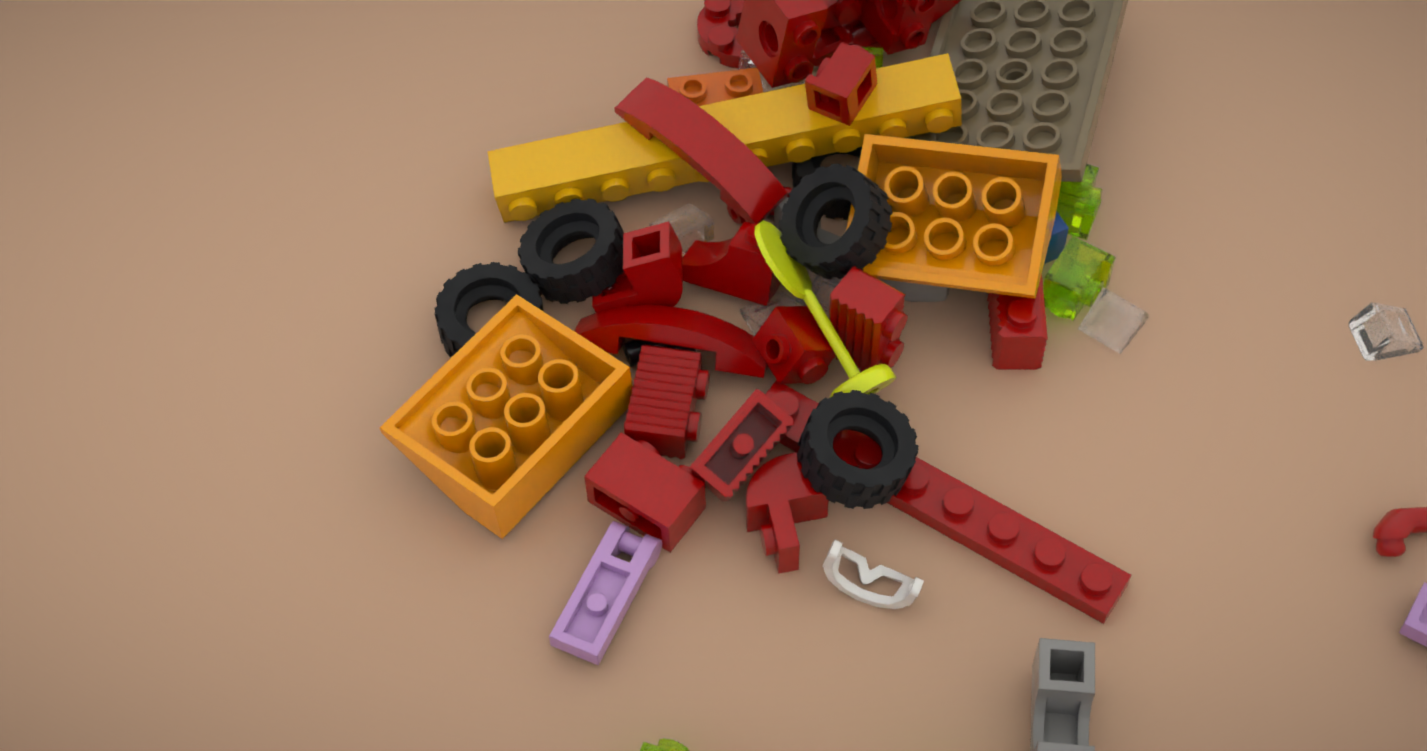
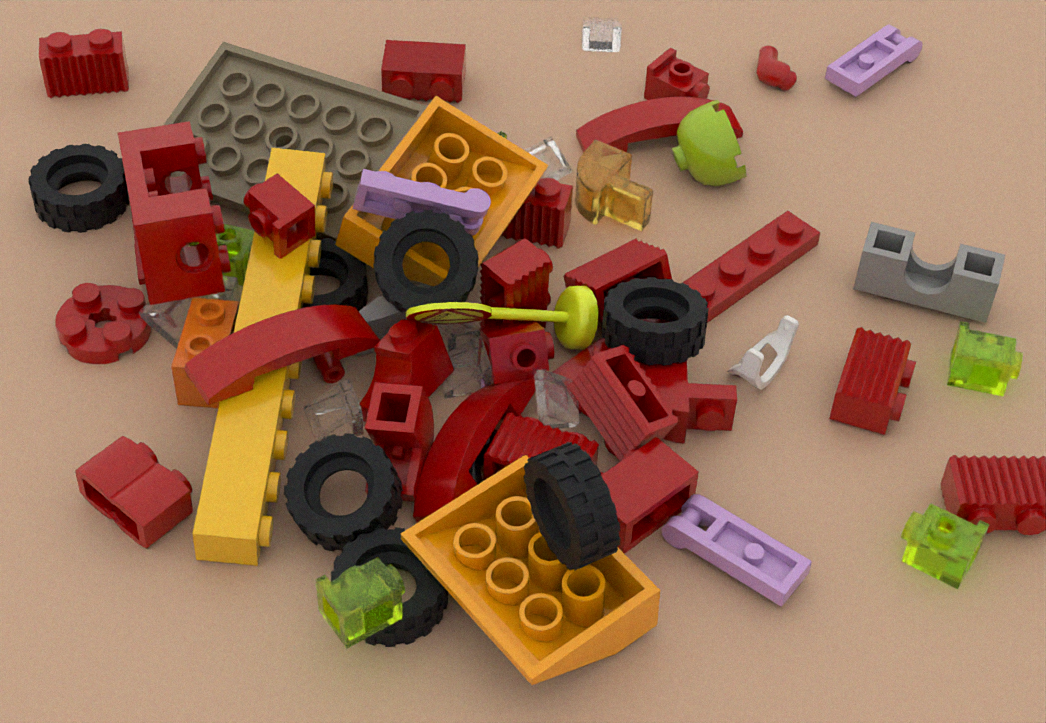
camera: 80 degrees left, 10 degrees down
(434, 283) = (361, 600): none -> clear neon green brick
(528, 392) = (572, 505): none -> black tyre
(545, 103) = (135, 490): none -> red brick
(733, 384) = (555, 400): none -> clear slope
(873, 693) = (871, 381): none -> red brick
(900, 188) = (395, 196): none -> lavender plate
(944, 420) = (618, 266): none -> red brick
(1089, 374) = (606, 188): none -> clear yellow brick
(1195, 471) = (708, 146): none -> lime cylinder
(1208, 172) = (424, 70): none -> red brick
(1238, 424) = (645, 121): none -> red slope
(1311, 421) = (674, 78): none -> red brick

